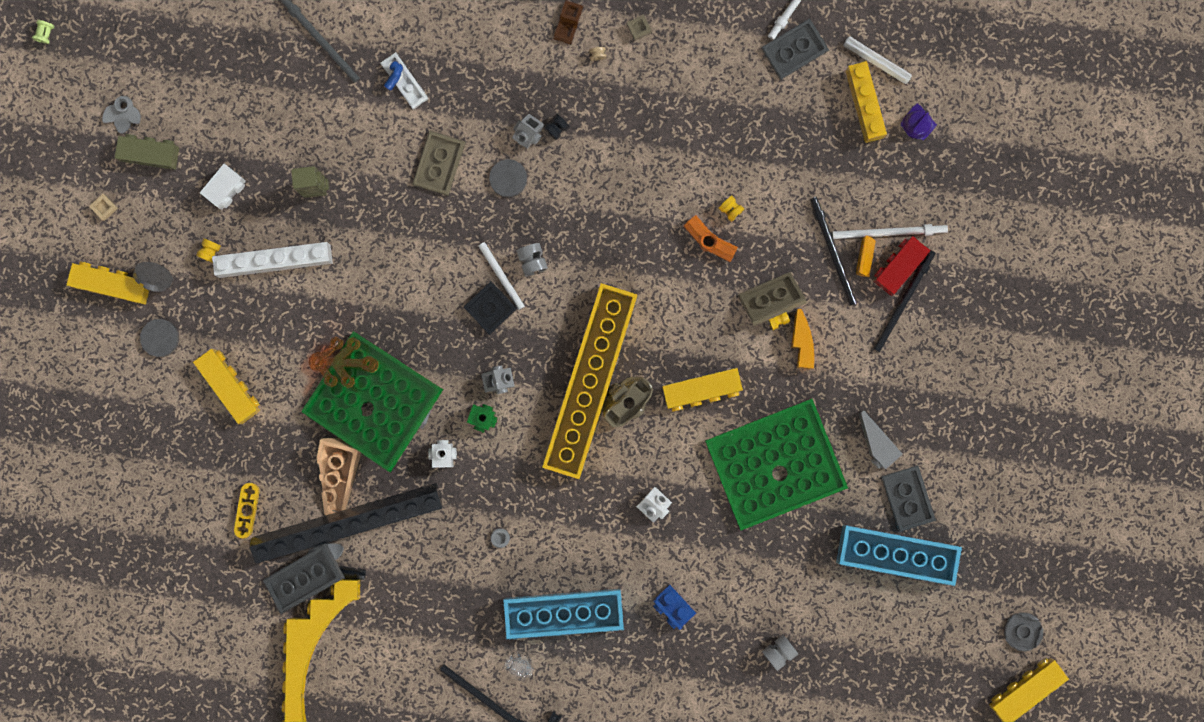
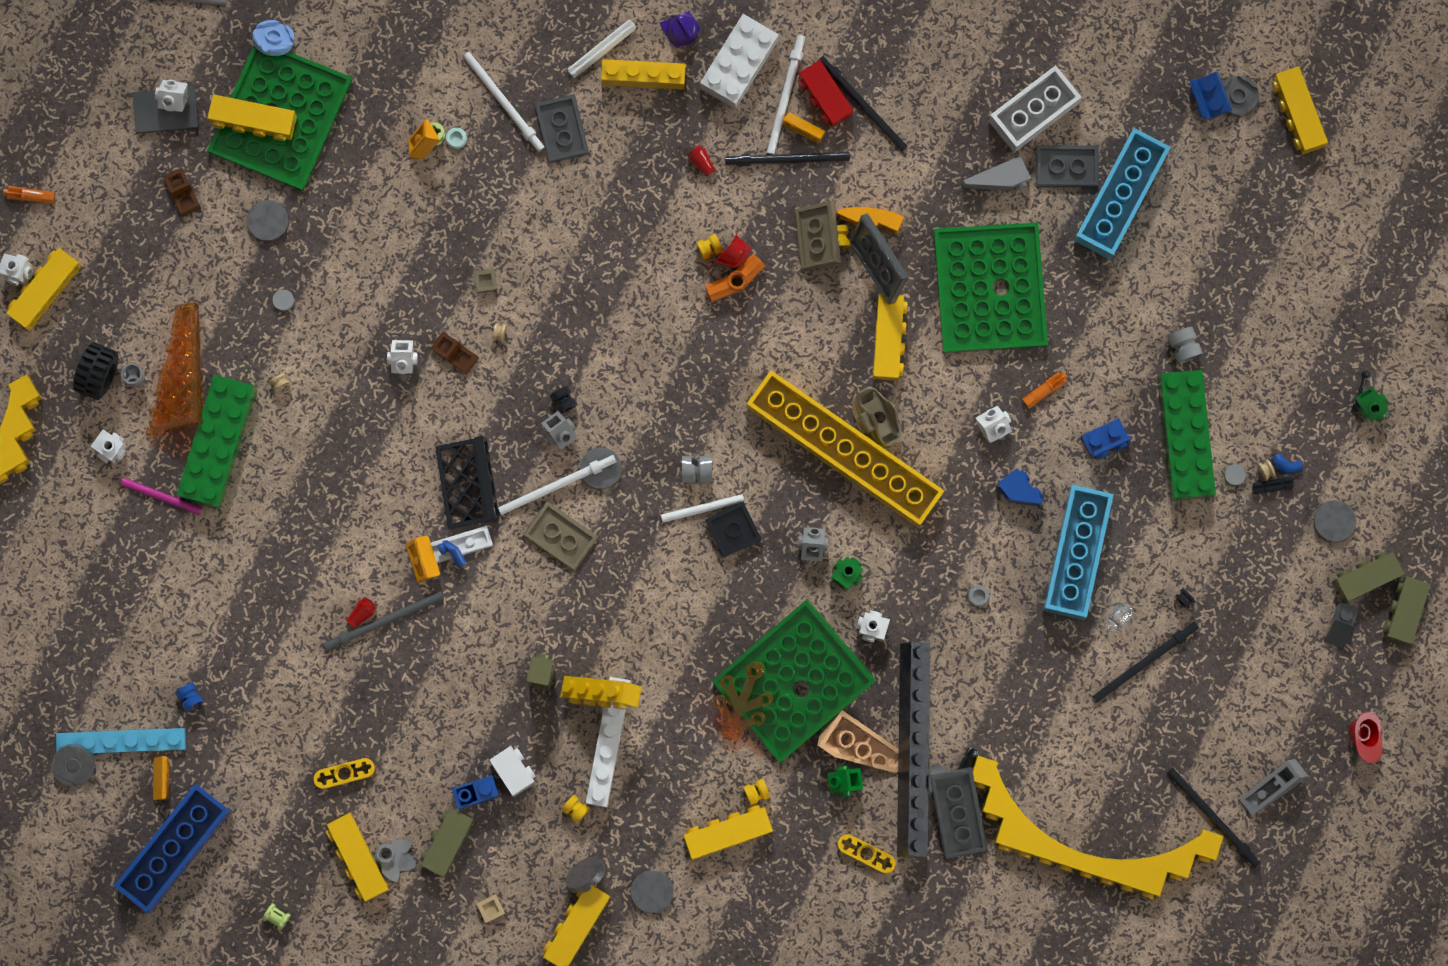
camera: 80 degrees left, 5 degrees down
(111, 82) = (357, 857): none -> yellow brick
(169, 40) = (361, 775): none -> yellow beam
(195, 162) = (475, 792): none -> blue slope
(269, 399) = (751, 792): none -> yellow wheel
(301, 472) = (840, 782): none -> green brick
(307, 238) = (600, 691): none -> yellow brick
(323, 18) = (361, 612): none -> red cone
(382, 53) = (422, 559): none -> light orange slope
(469, 81) = (484, 476): none -> black fence
(504, 170) = (595, 467): none -> white bar
(603, 543) = (1018, 489): none -> blue slope
(699, 678) = (1186, 435): none -> green brick
(702, 541) = (1045, 389): none -> orange piece
(732, 231) = (734, 254): none -> red piece
(766, 357) = (878, 259): none -> dark grey tile
(806, 177) = (701, 160): none -> red cone
(906, 181) = (739, 61): none -> white brick
(950, 453) = (1034, 109): none -> white brick
(1014, 607) = (1210, 96): none -> blue bracket

